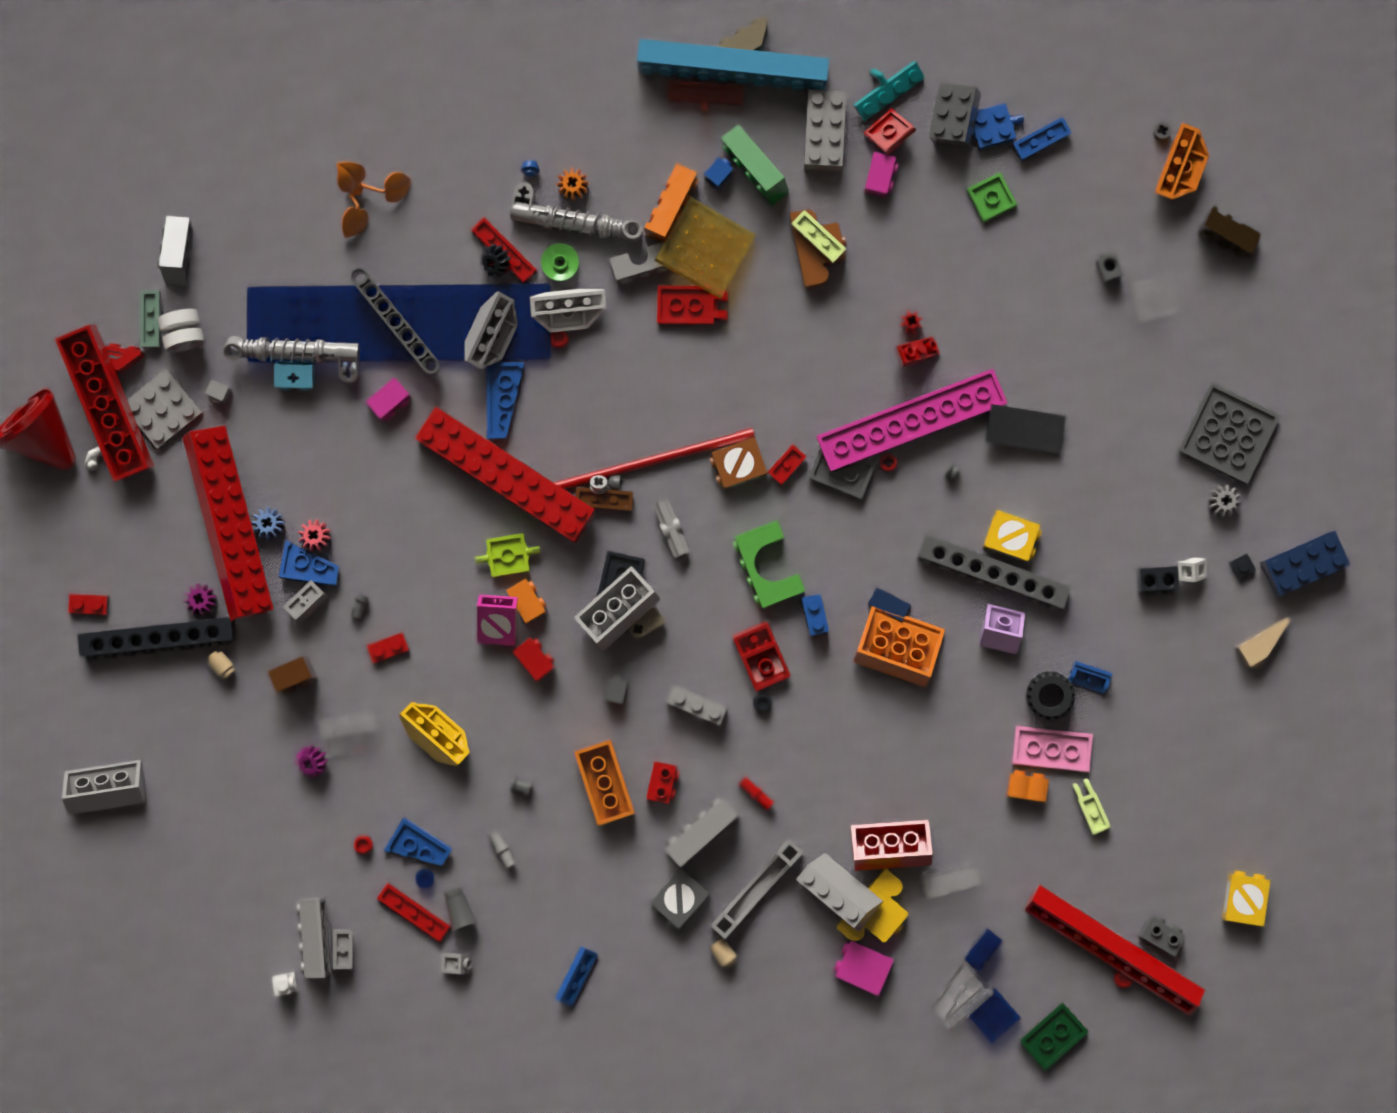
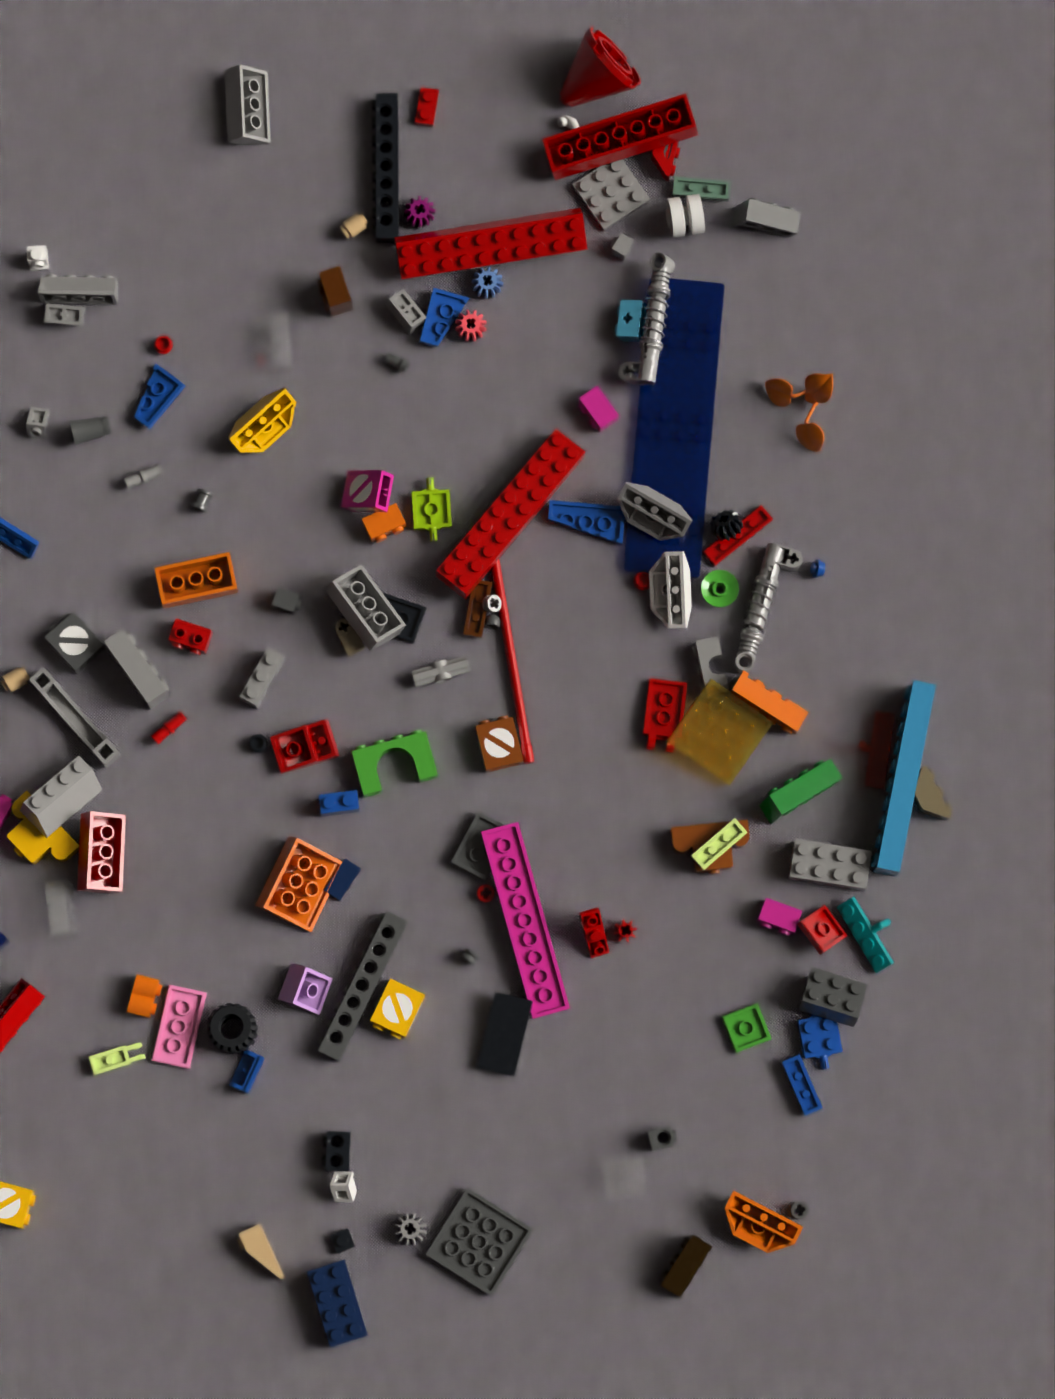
camera: 85 degrees right, 5 degrees down
(311, 761) = (249, 302): magenta gear -> none
(387, 647) = (353, 386): red plate -> none
(392, 313) = (679, 414): dark grey beam -> none
(413, 912) = (92, 386): red tile -> none
(425, 878) = (123, 400): clear blue plate -> none
(534, 659) = (325, 524): red brick -> none
(580, 184) = (800, 602): orange gear -> none
(718, 172) = (796, 754): blue brick -> none
(787, 464) = (493, 792): red plate -> none

